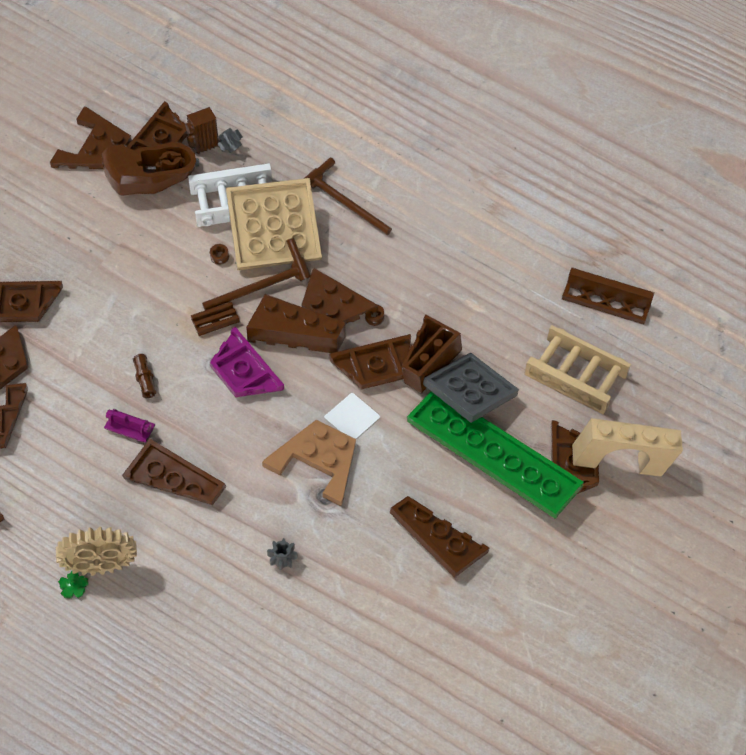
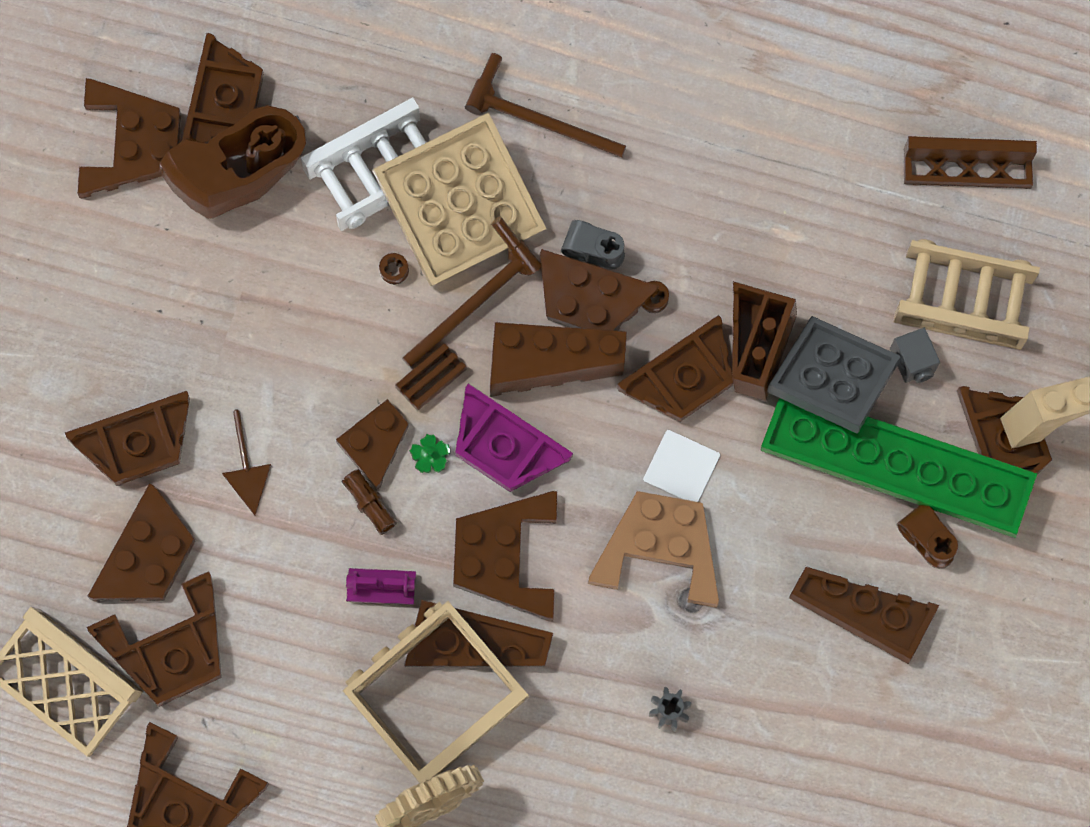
camera: 20 degrees left, 15 degrees up
(76, 344) = (248, 481): none -> reddish brown piece
(121, 461) = (387, 658): none -> tan window
(164, 344) = (374, 441): none -> reddish brown wing
(195, 362) = (430, 454): none -> green plant
(202, 130) = (289, 70): reddish brown brick -> none
(208, 427) = (490, 554): none -> reddish brown wing
(230, 140) = (334, 71): dark grey gear -> none
(348, 274) = (589, 245): none -> dark grey piece
(498, 503) = (925, 532): none -> reddish brown piece
(530, 394) = (917, 355): none -> dark grey brick

